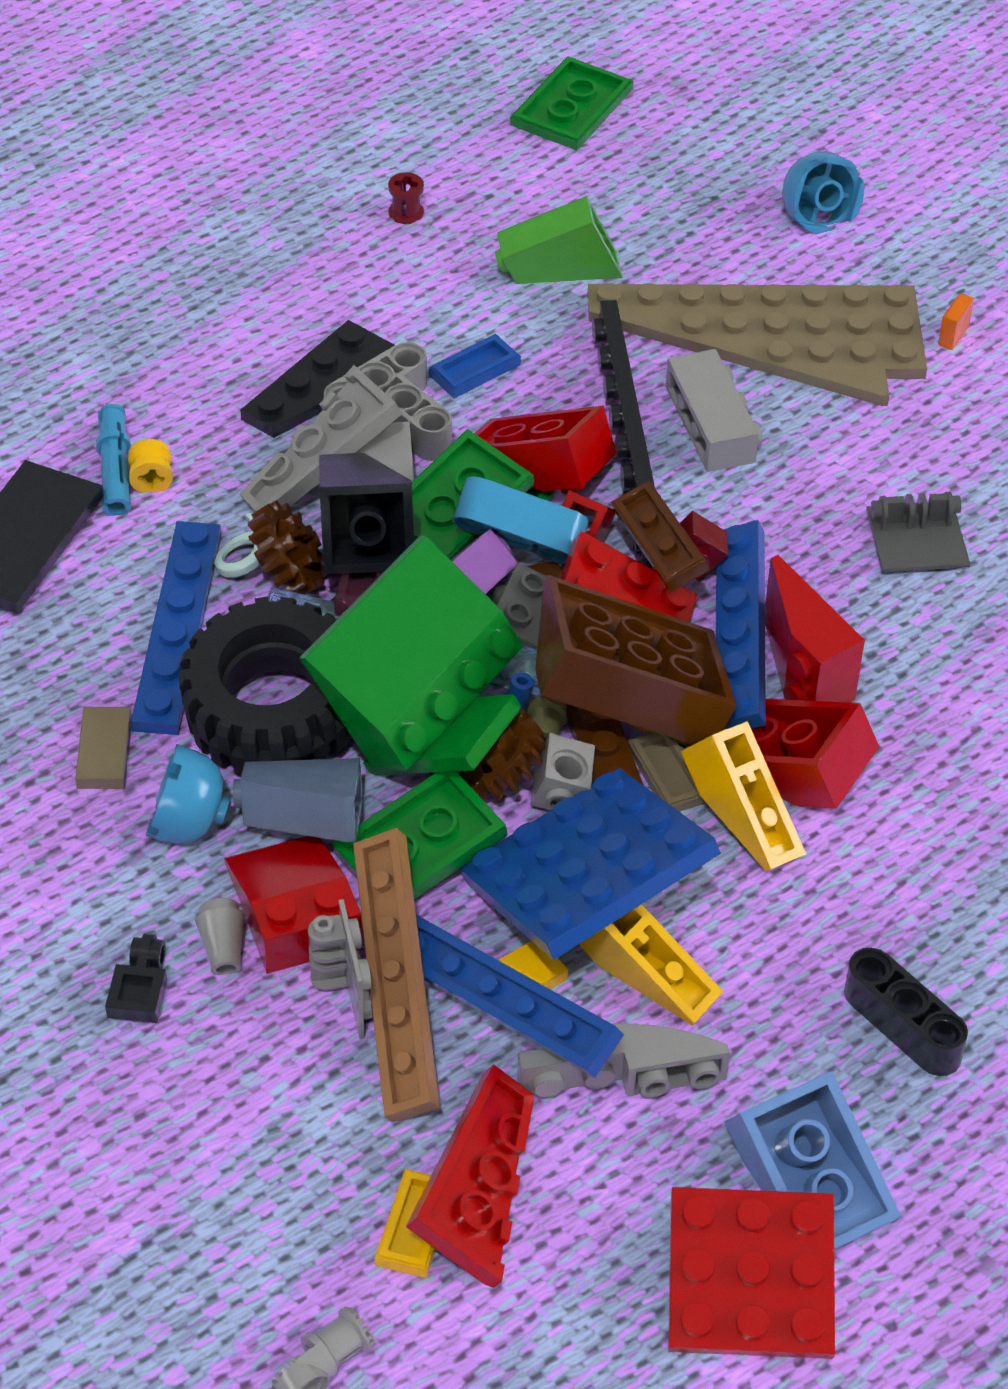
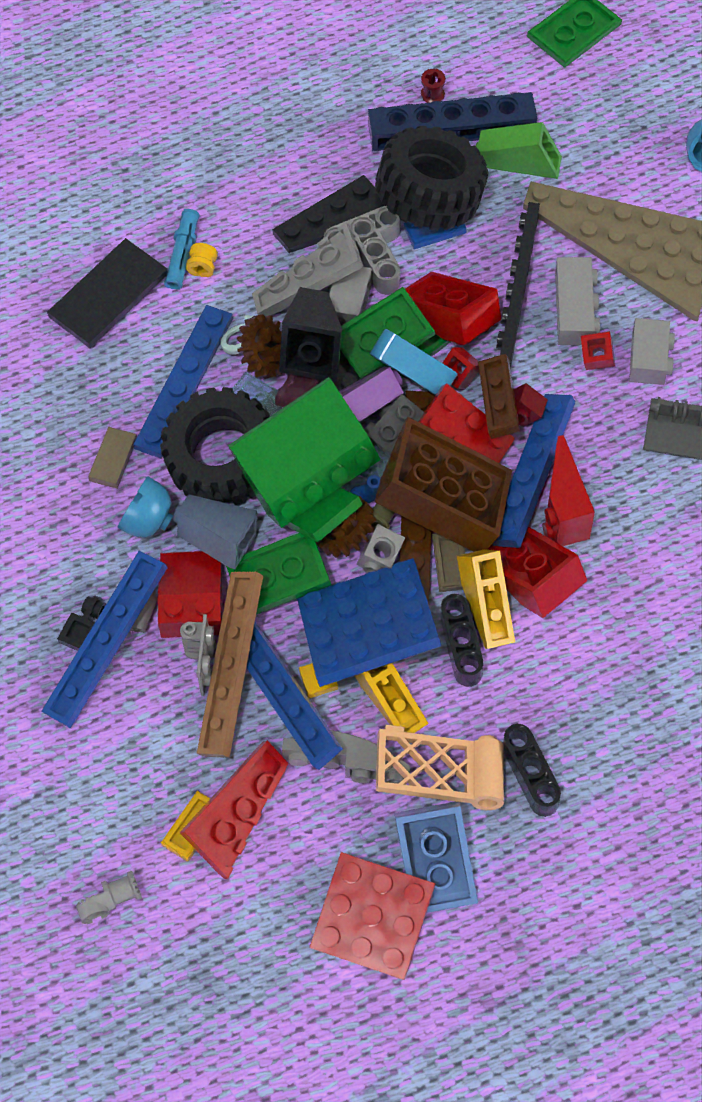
camera: 20 degrees right, 15 degrees up
(184, 987) = (104, 639): none -> blue plate
(436, 235) = (461, 116): none -> dark blue brick
(453, 294) = (431, 177): none -> black tyre
(739, 873) = (461, 627): none -> black beam
(770, 461) = (597, 342): none -> red plate
(829, 1027) = (482, 764): none -> light nougat piece
(843, 448) = (650, 351): none -> light grey brick

